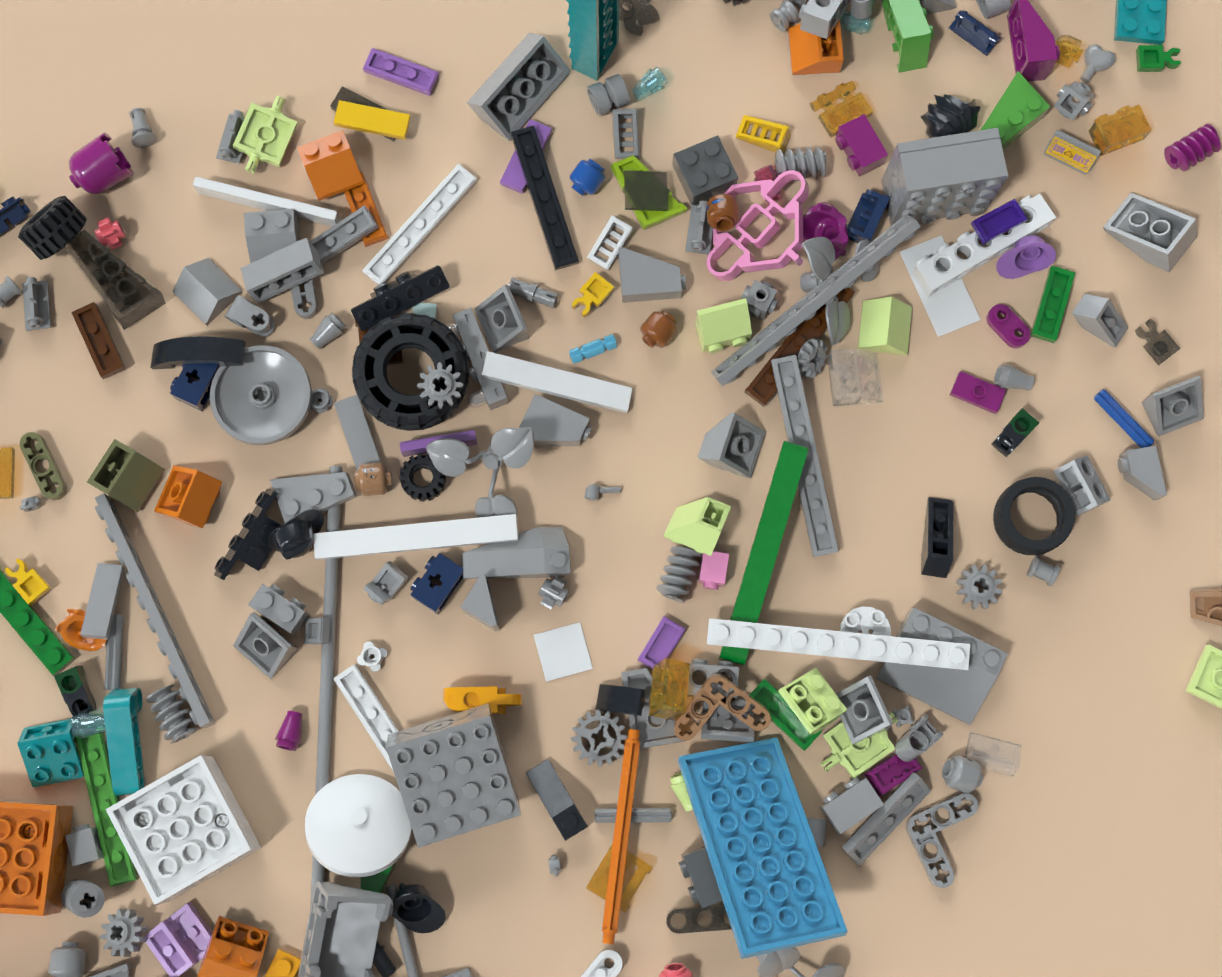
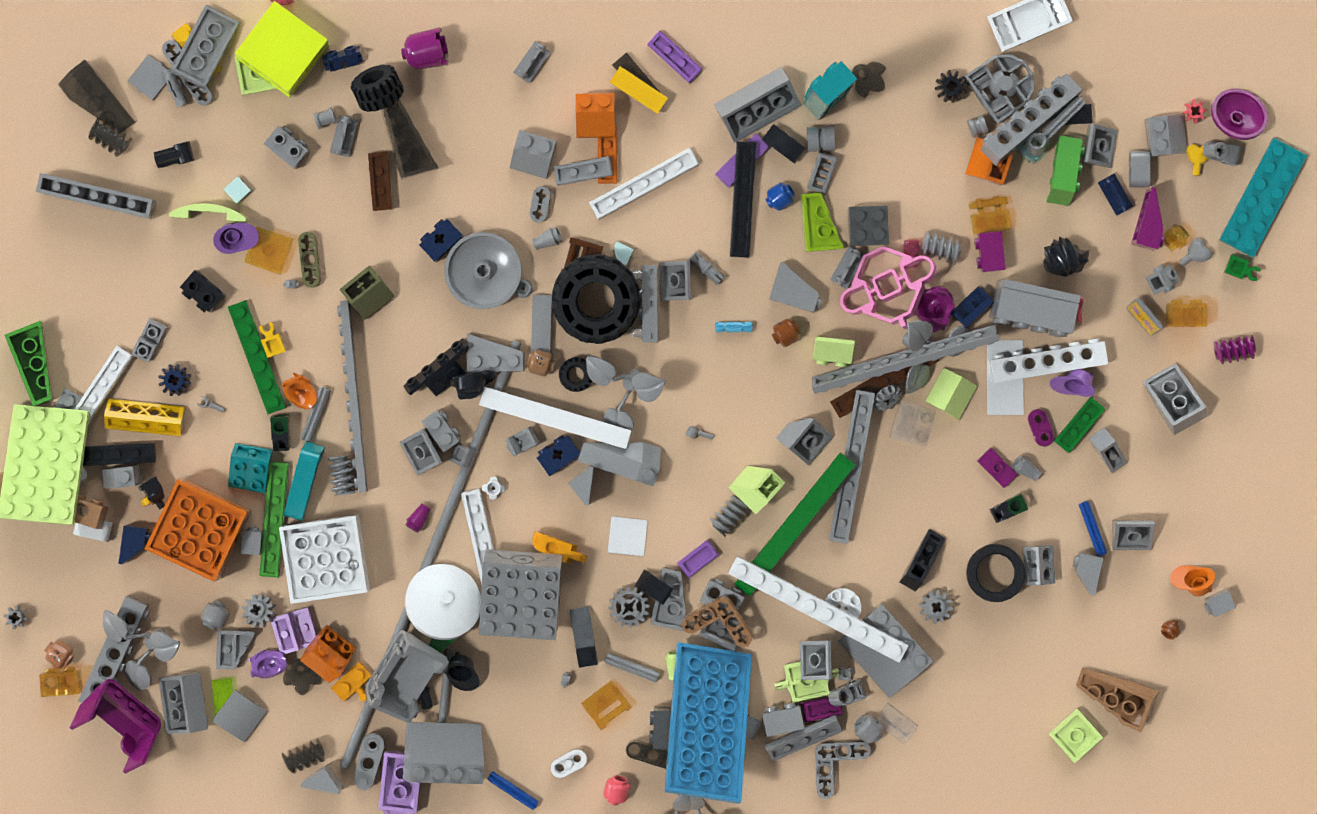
camera: 25 degrees right, 10 degrees up
(73, 893) = (240, 577): light grey piece -> none
(87, 724) = (282, 460): clear light blue cone -> none
(102, 601) = (320, 376): light grey tile -> none
(110, 233) = (415, 103): coral gear -> none
(142, 132) = (466, 28): light grey pin -> none
(188, 496) = (405, 323): orange slope -> none
(198, 350) = (448, 221): black slope -> none
(205, 290) = (470, 172): light grey slope -> none
(248, 316) = (493, 204): light grey piece -> none
(264, 201) = (538, 123): white tile -> none
(265, 134) = (555, 70): yellowish green plate -> none
(282, 270) = (531, 182): light grey brick -> none
(399, 296) = (608, 234): black bracket -> none
(419, 446) = (606, 356): medium lavender tile -> none
(430, 388) = (612, 332): light grey gear -> none
(553, 592) = (636, 494): light grey gear -> none
(555, 424) = (682, 373): light grey slope -> none
(556, 382) = (697, 344): white tile -> none
(567, 117) = (784, 143): none -> black slope
(594, 292) = (752, 285): yellow plate -> none
(613, 221) = (792, 243): white slope -> none
(621, 836) = (618, 678): orange piece -> none
(645, 190) = (818, 224): clear smoke piece -> none
(650, 83) = (855, 140): clear light blue cone -> none
(669, 689) = (690, 593): clear yellow brick -> none
(713, 570) = (754, 522): bright pink brick -> none
(722, 212) = (866, 266): dark orange head -> none
(760, 307) = (860, 339): light grey brick -> none
(761, 141) = (939, 220): yellow slope -> none
(782, 715) = (763, 641): green plate -> none
(813, 701) = (784, 641): yellowish green slope -> none
(999, 221) = (1064, 351): dark purple tile -> none
(1016, 110) = (1111, 272): bright green wedge -> none
(1043, 570) = (986, 613): light grey bush -> none
(1159, 345) = (1143, 485): clear smoke plate -> none

